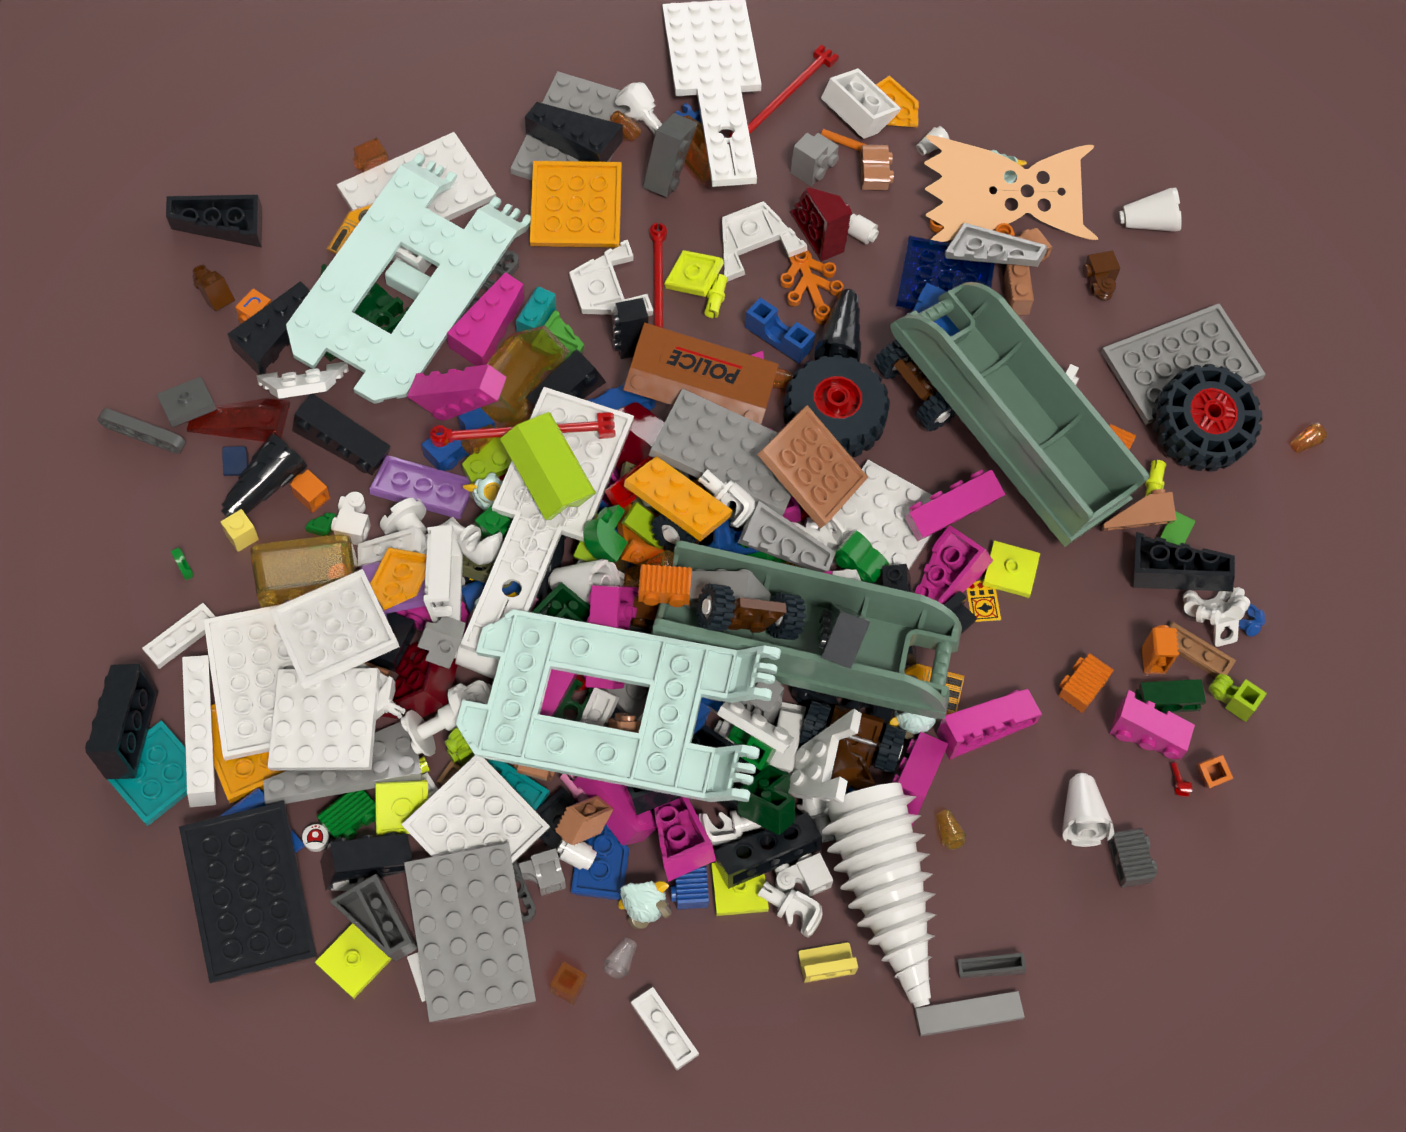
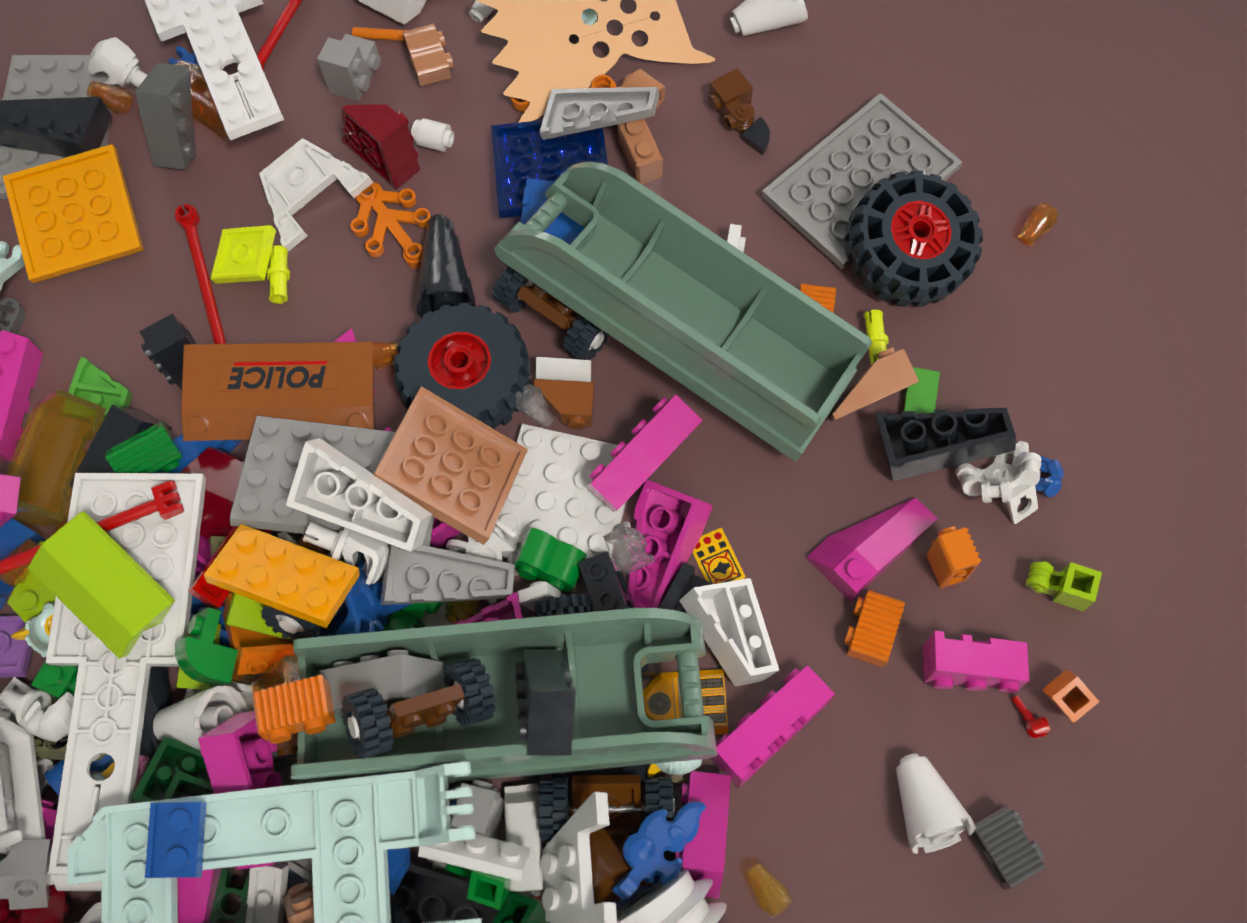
camera: 10 degrees left, 5 degrees up
(537, 310) = (56, 365): teal brick -> none
(560, 644) = (175, 840): none -> blue plate
(593, 388) = (146, 452): none -> green brick
(597, 283) = (128, 307): white wing -> none
(739, 457) = (352, 497): none -> white wedge
(764, 322) = (385, 302): blue arch -> none
(882, 448) = (534, 405): none -> clear cone
(883, 758) = (655, 836): none -> blue piece
(907, 453) = (569, 401): none -> dark orange slope
(909, 434) = (563, 369): none -> white sticker
(921, 568) = (627, 548): none -> clear brick
(982, 648) = (734, 629): none -> white wedge
(1011, 569) = (739, 507): neon yellow plate -> none
(1100, 628) = (865, 550): none -> dark pink wedge
(1112, 306) = (757, 136): none -> black tile
(1173, 695) = (984, 610): dark green piece -> none
(1202, 653) = (1001, 538): medium nougat tile -> none

